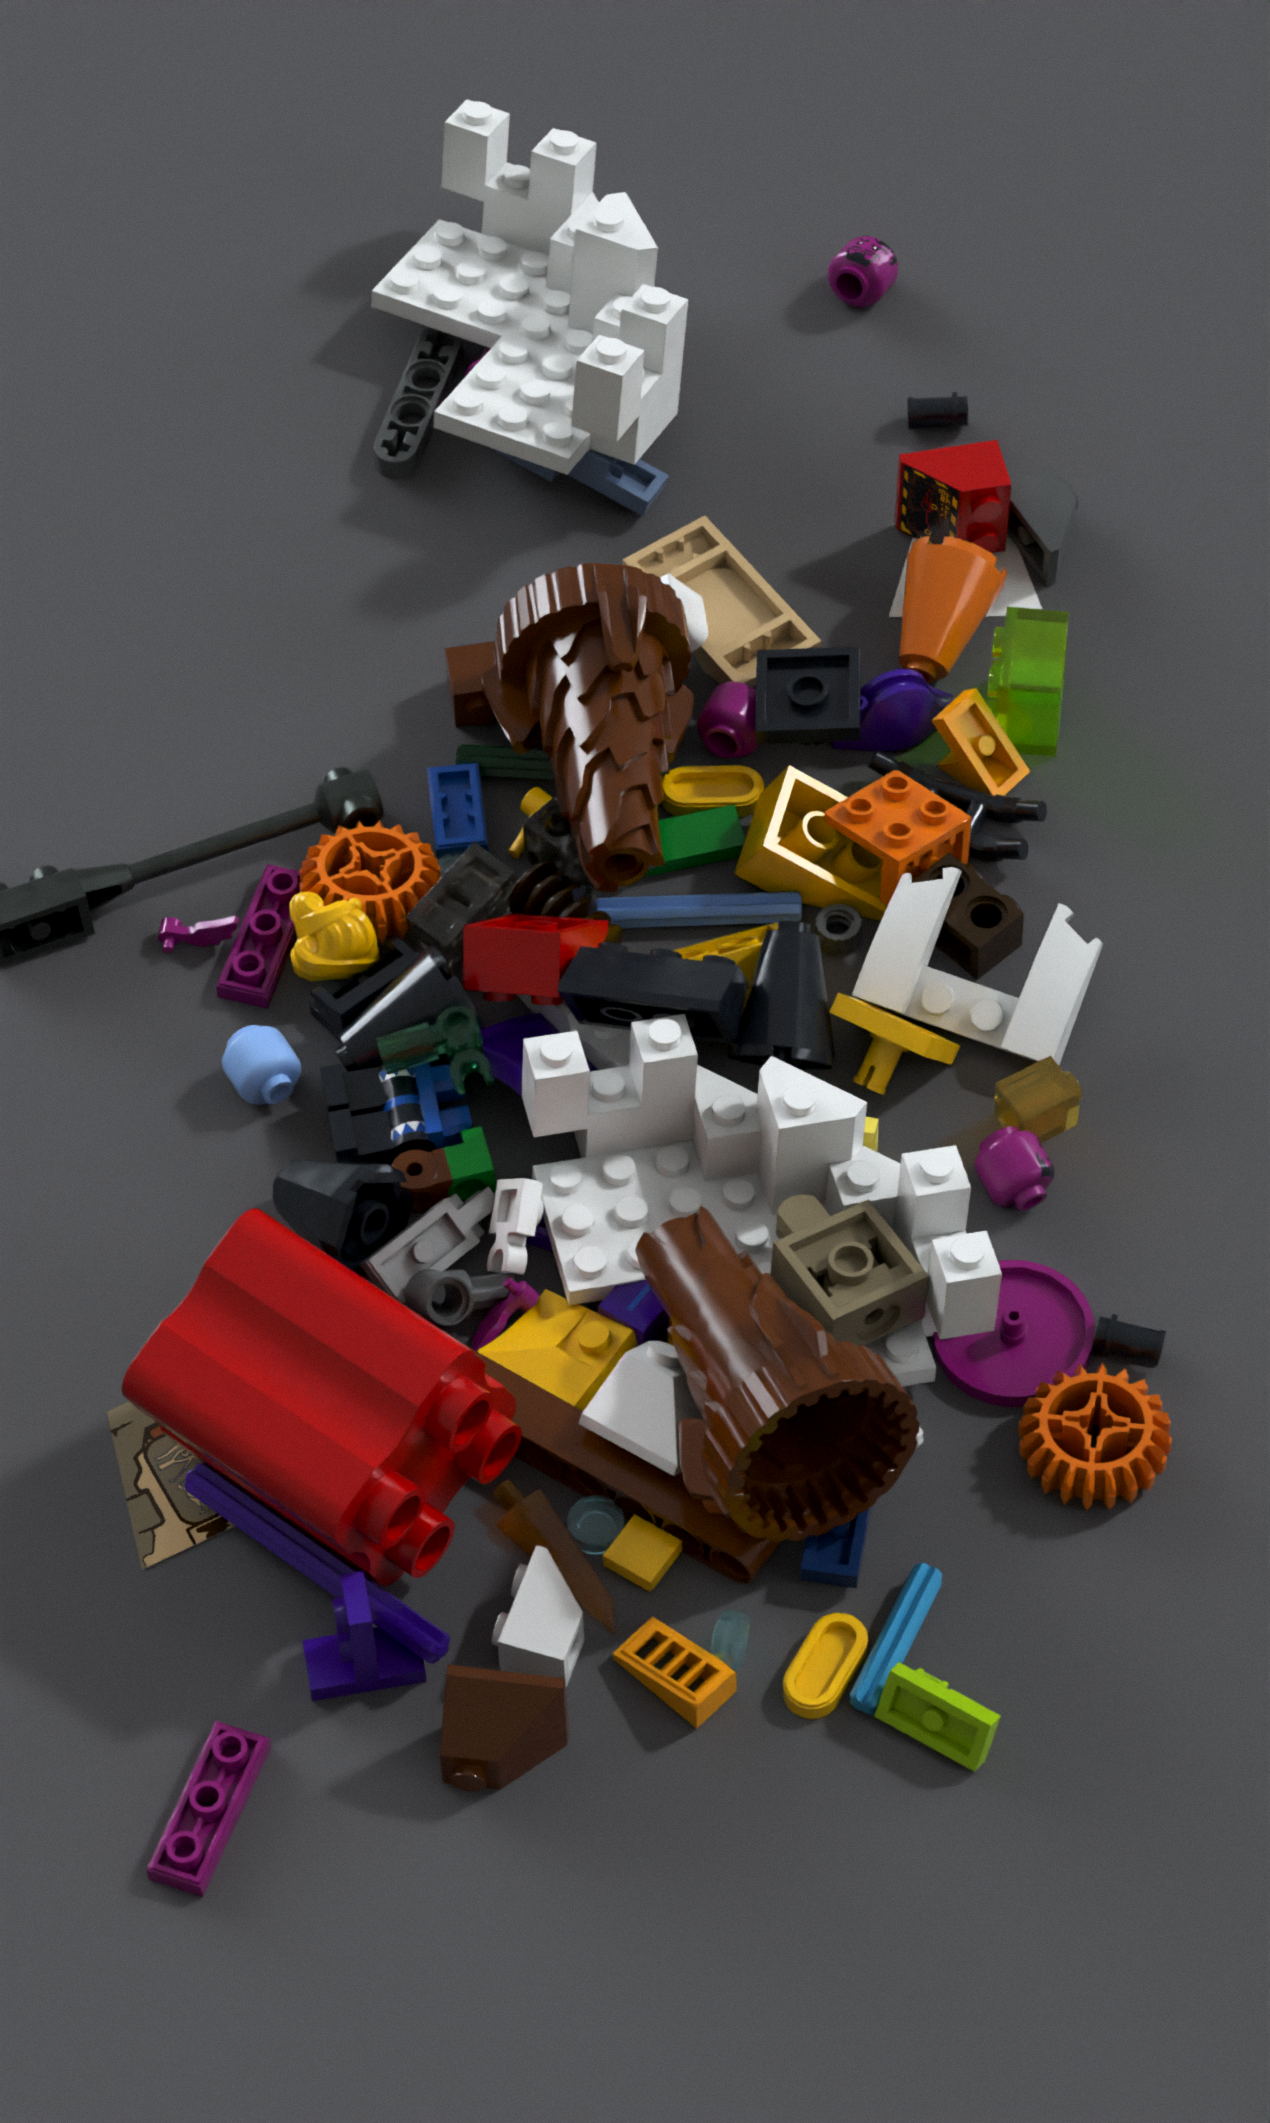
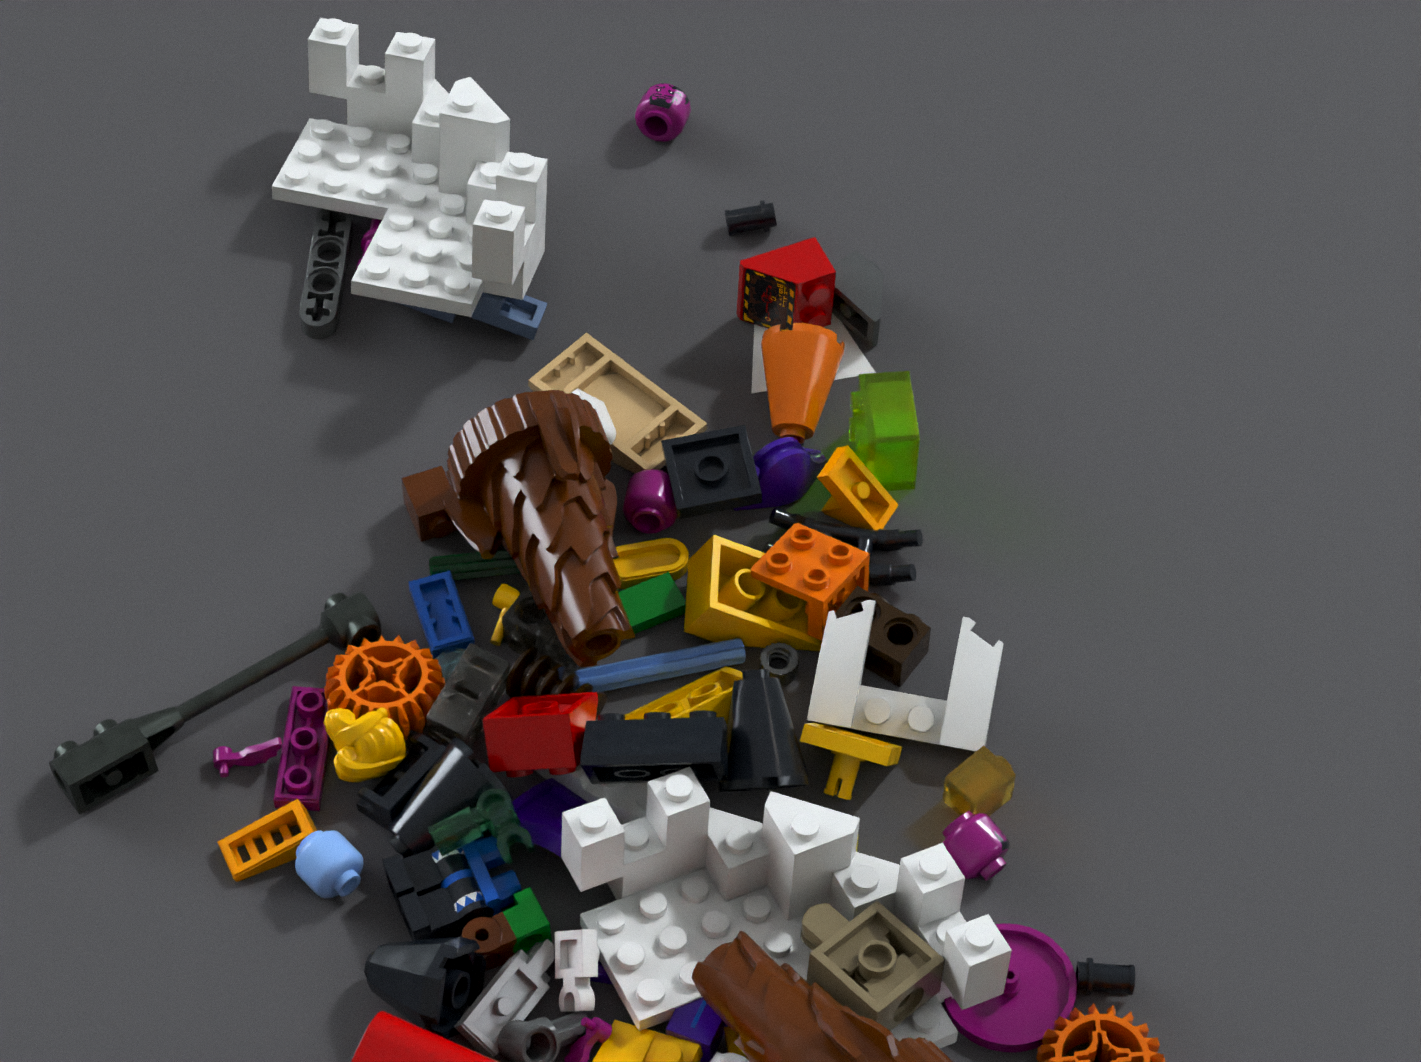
camera: 15 degrees left, 0 degrees up
(207, 1046) = (276, 855): none -> light orange slope

